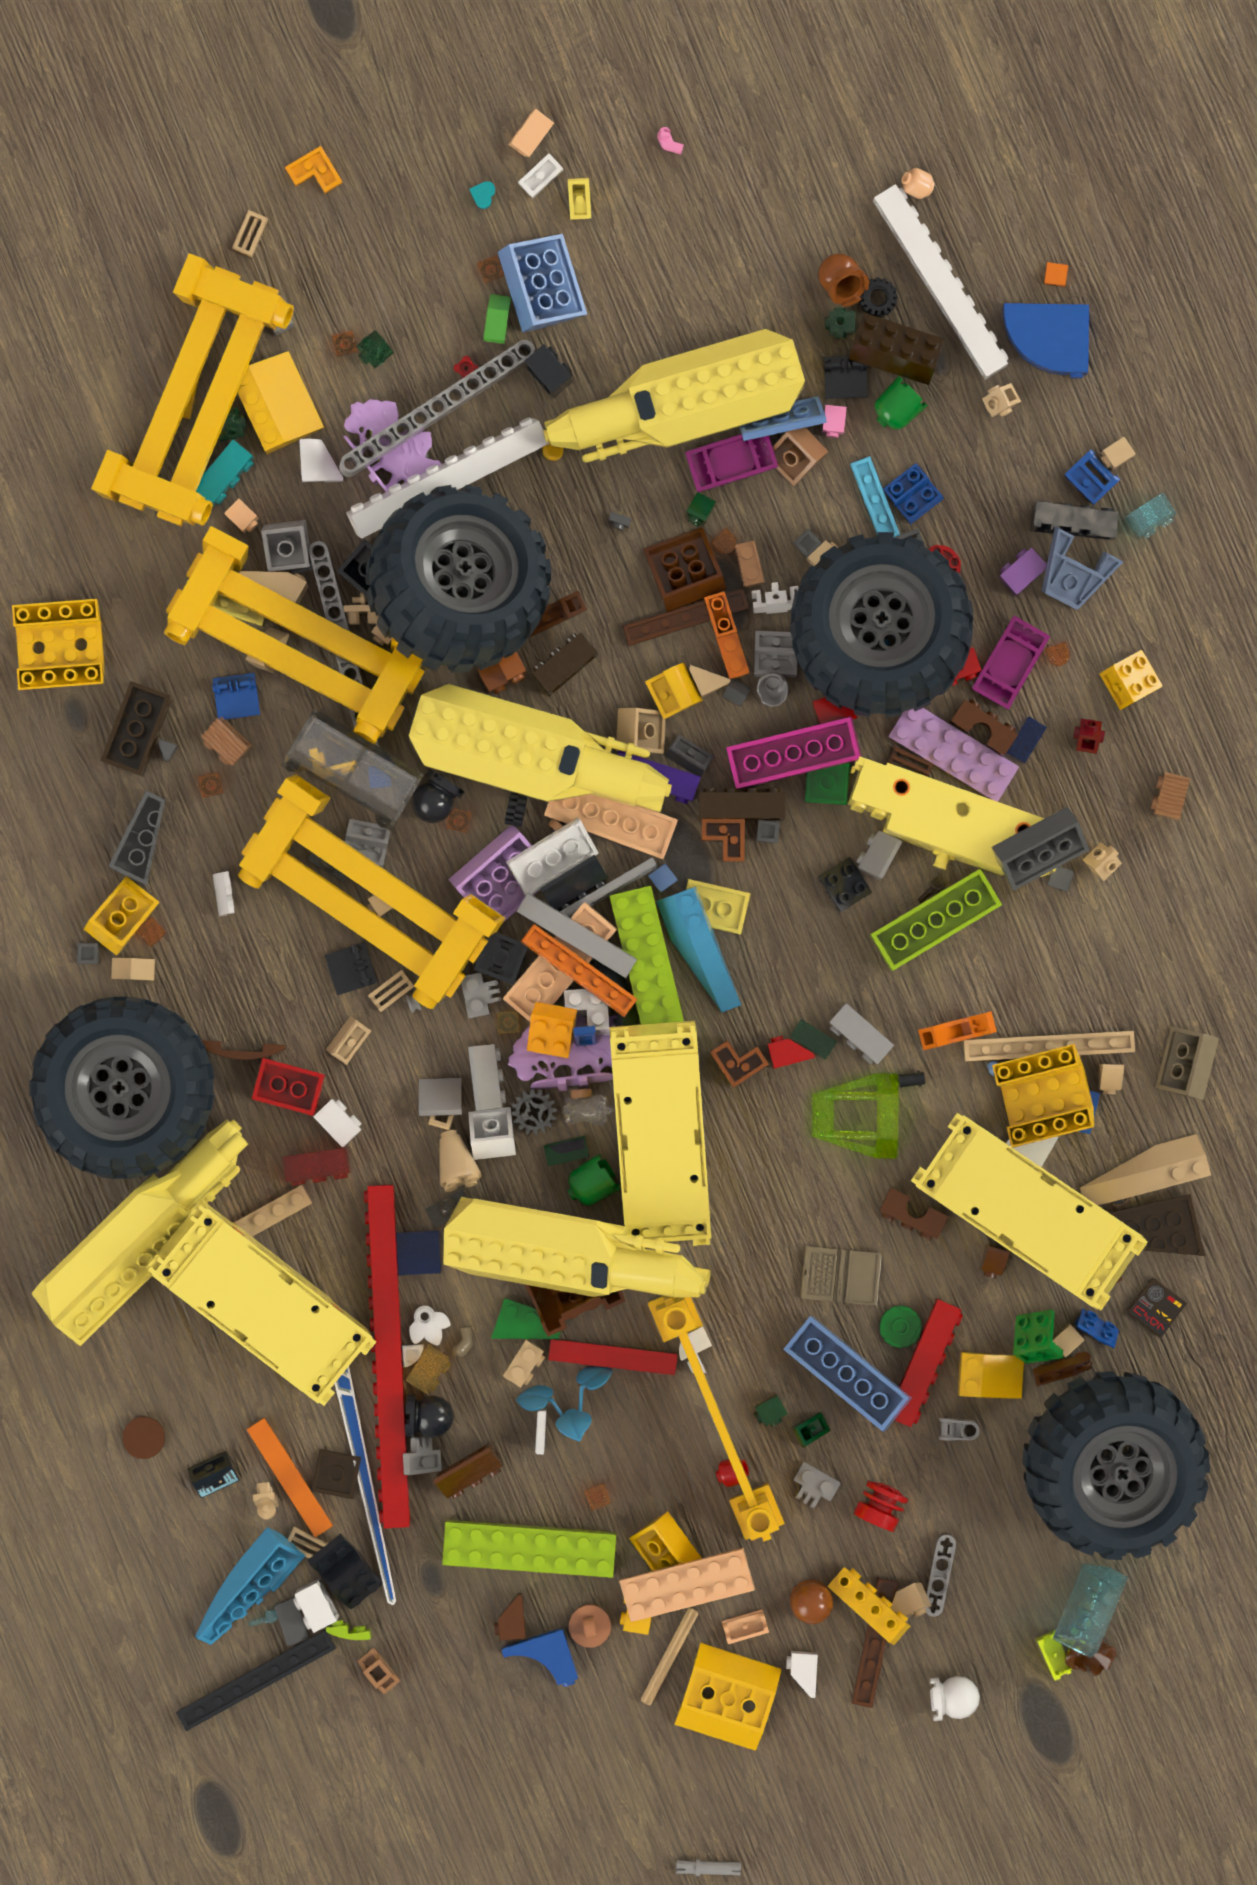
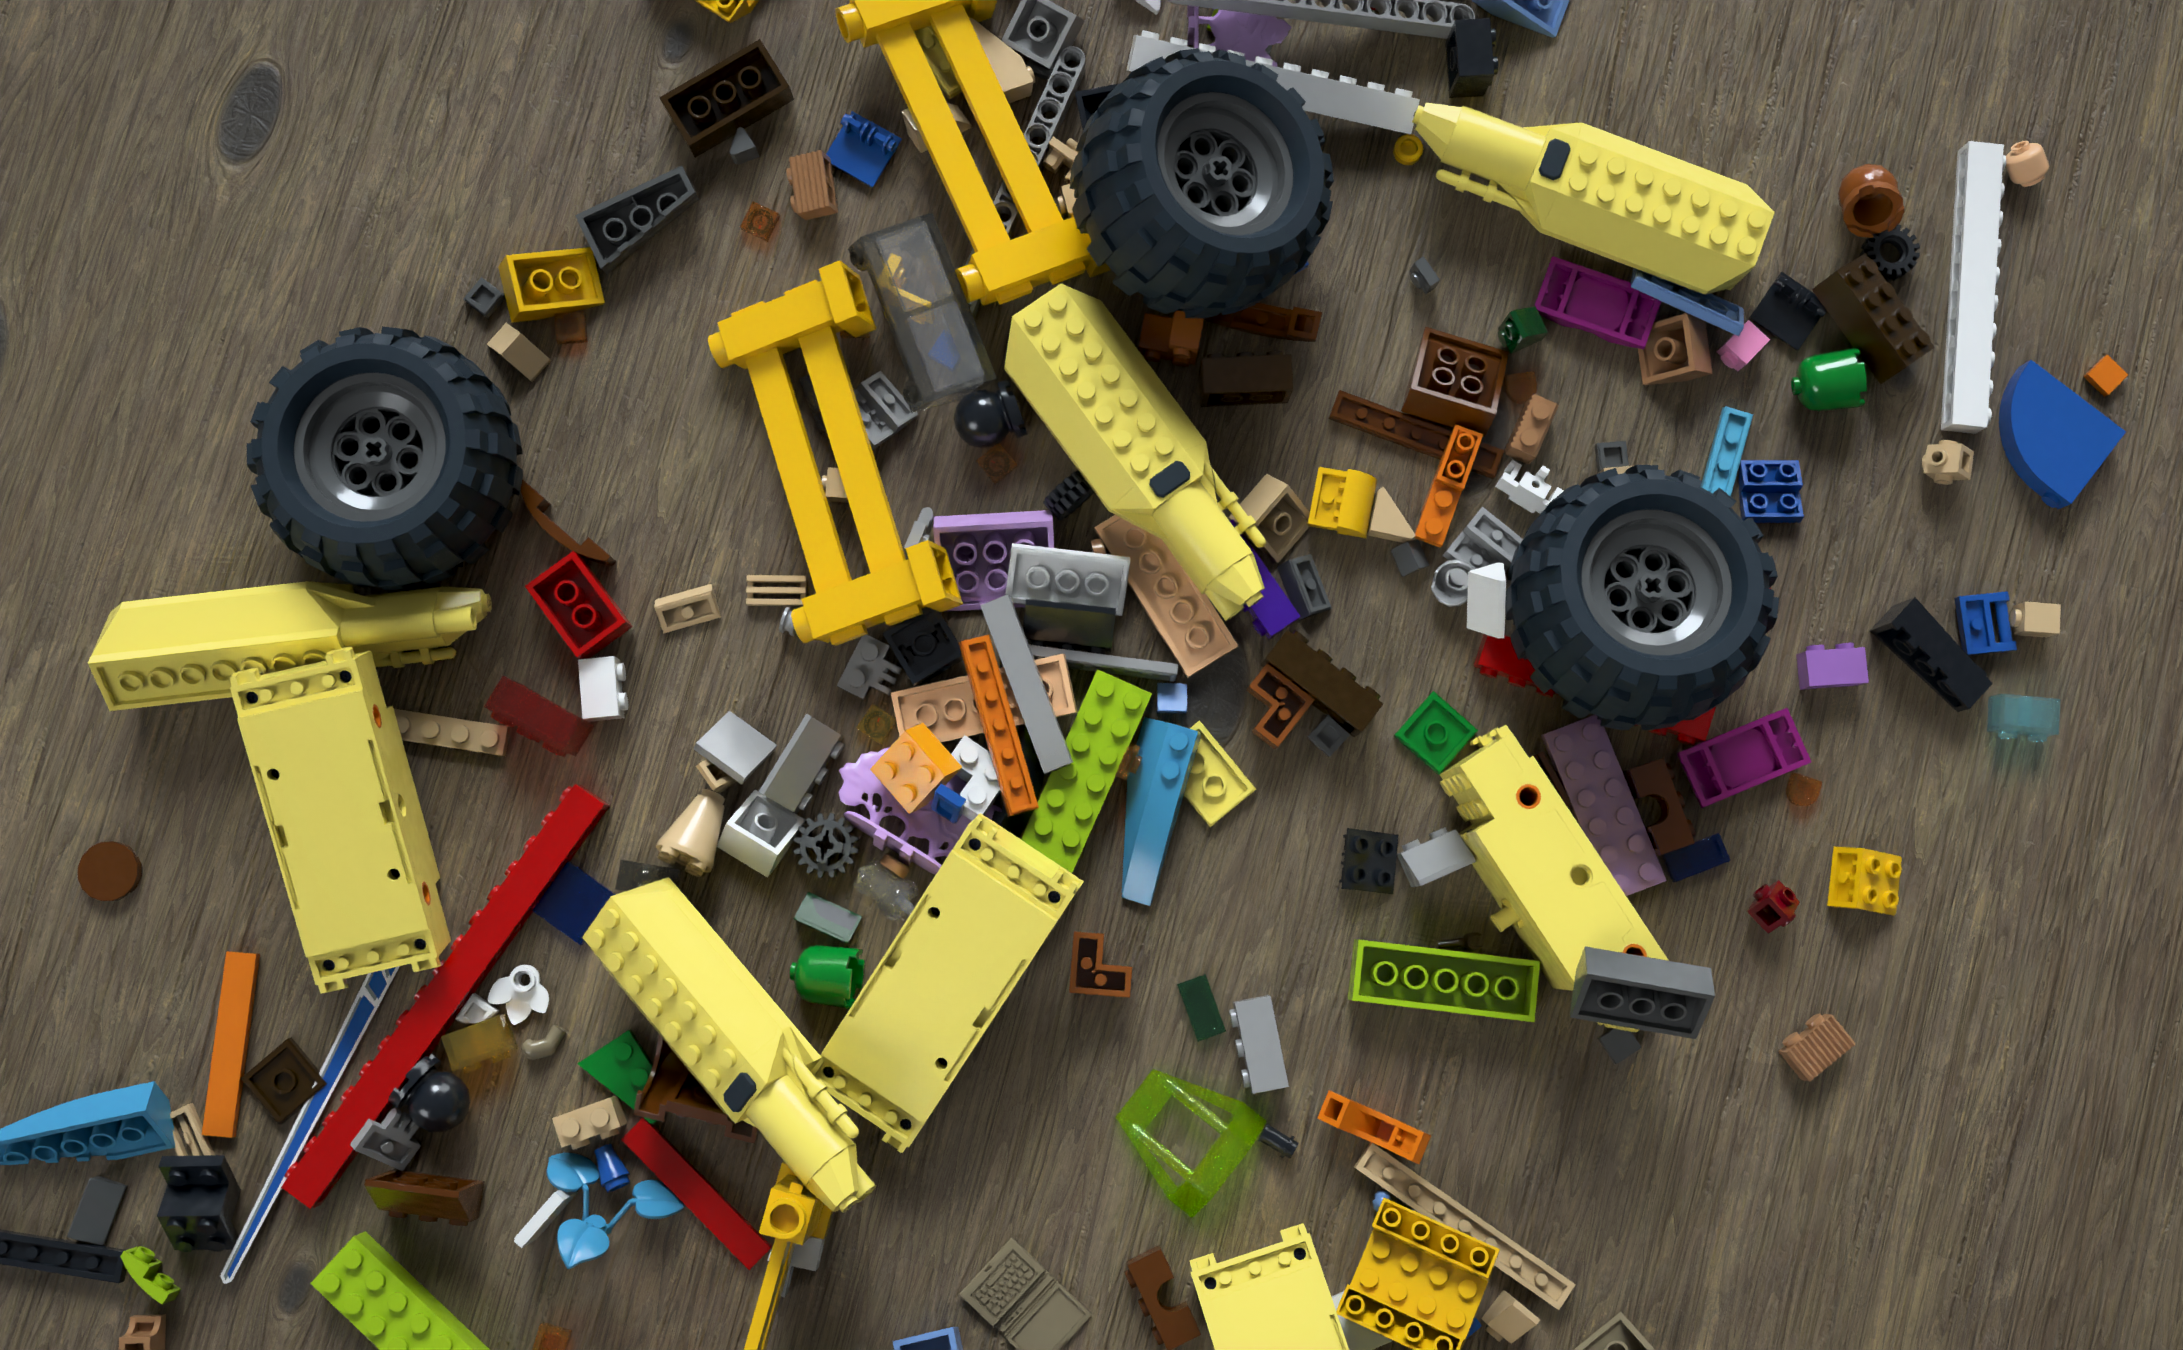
camera: 35 degrees right, 5 degrees down
(212, 1474) = (148, 972): black panel -> none
(223, 893) = (683, 340): white slope -> none
(265, 1501) = (177, 1046): tan hips -> none
(271, 1616) = (75, 1187): clear light blue hand -> none
(316, 1605) = (131, 1217): white brick -> none
(351, 968) = (752, 532): black hinge -> none
(451, 899) = (921, 528): none -> light grey hinge
(556, 1380) = (611, 1169): none -> blue cone
(668, 933) = (1129, 762): none -> clear orange plate
(787, 1052) = (1160, 1000): red slope -> none
(794, 753) = (1426, 670): dark pink brick -> none
(797, 686) = (1487, 600): none -> white slope
(840, 315) = (1830, 247): clear green brick -> none
(1071, 580) = (1880, 713): sand blue wing -> none
(1102, 861) = (1684, 1061): tan brick -> none

